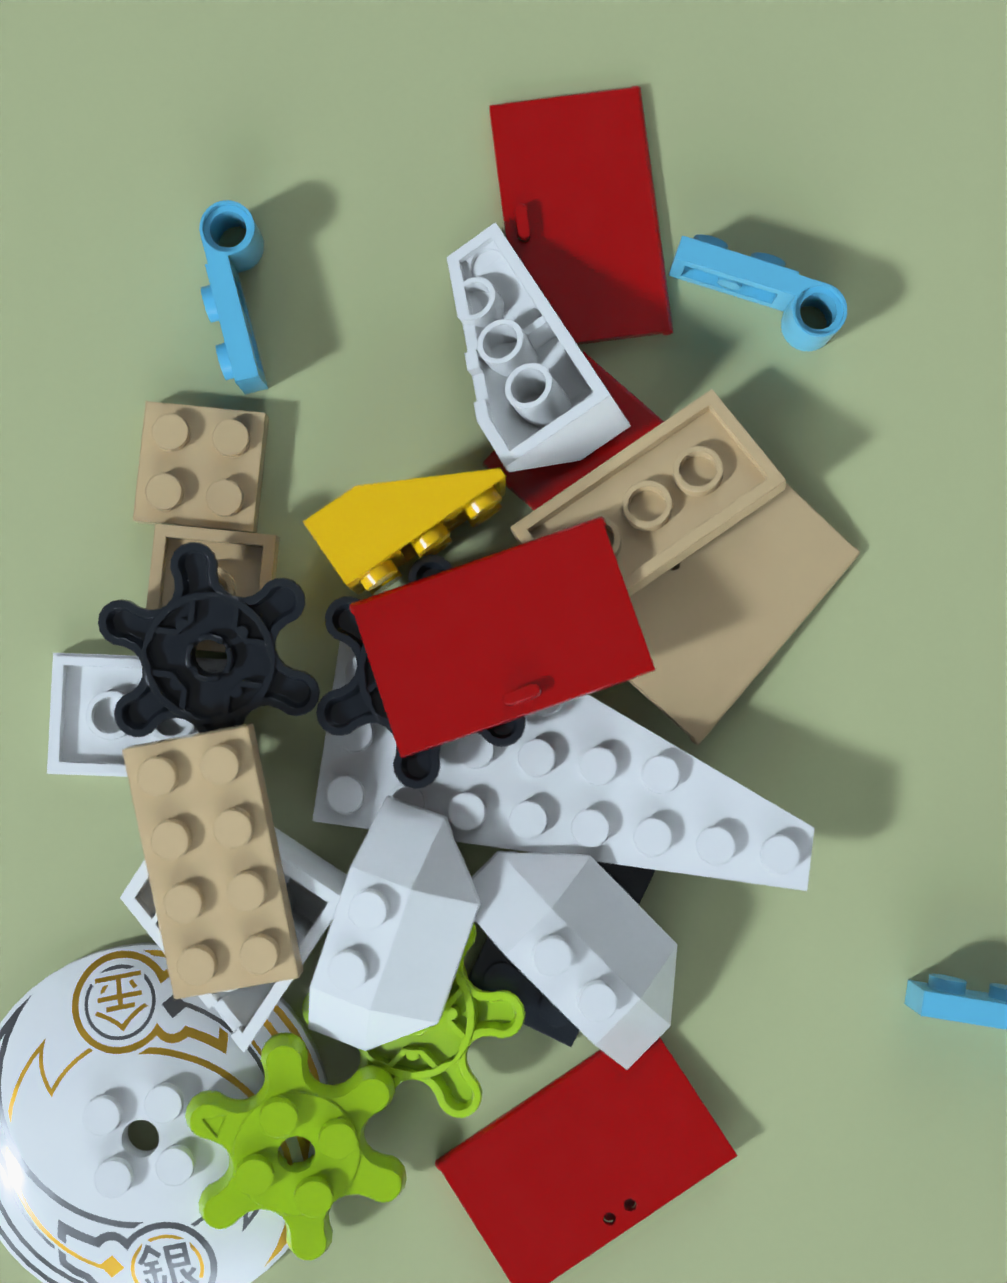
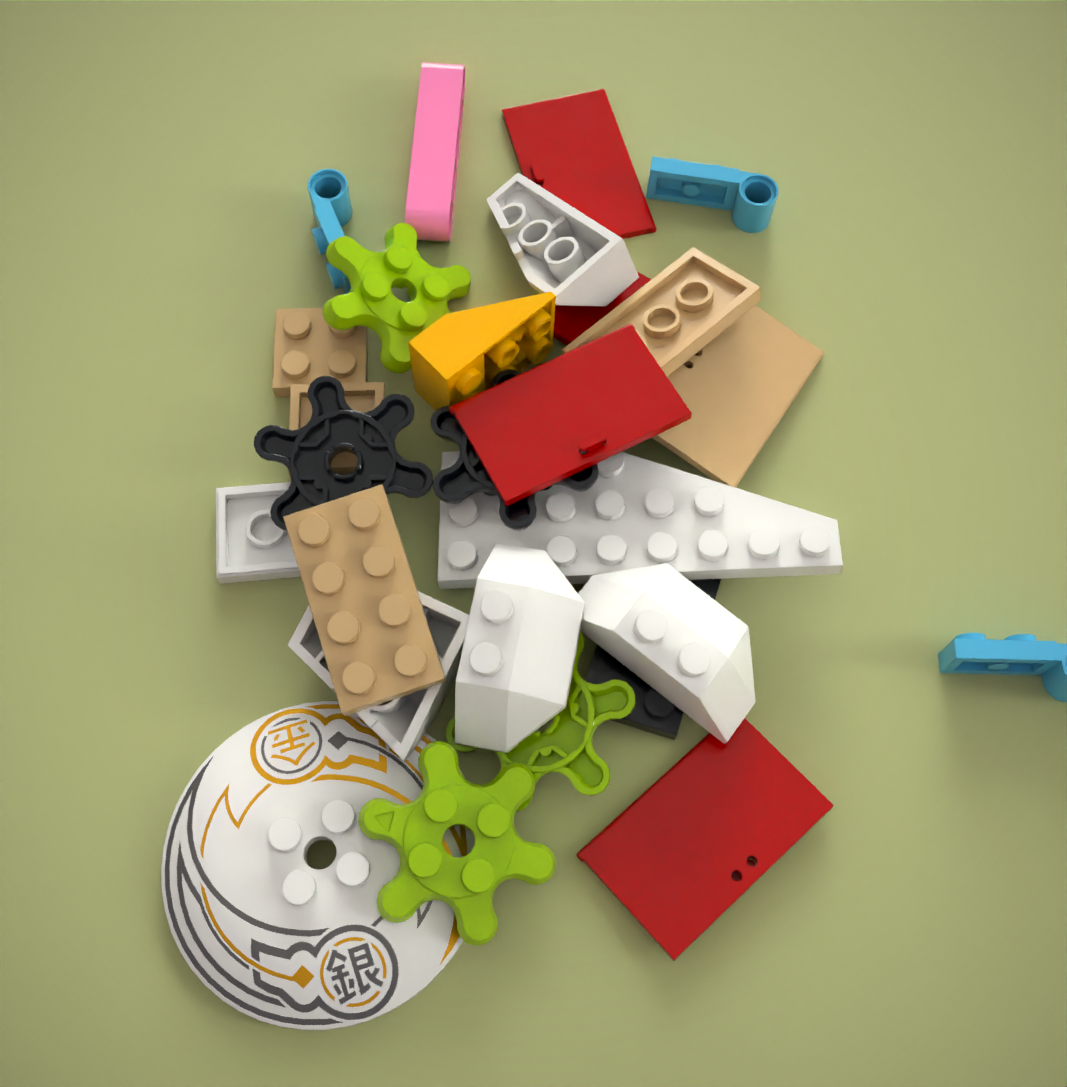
camera: 10 degrees left, 20 degrees down
(267, 419) = (371, 298): none -> lime plate
(385, 171) = (435, 151): none -> bright pink beam

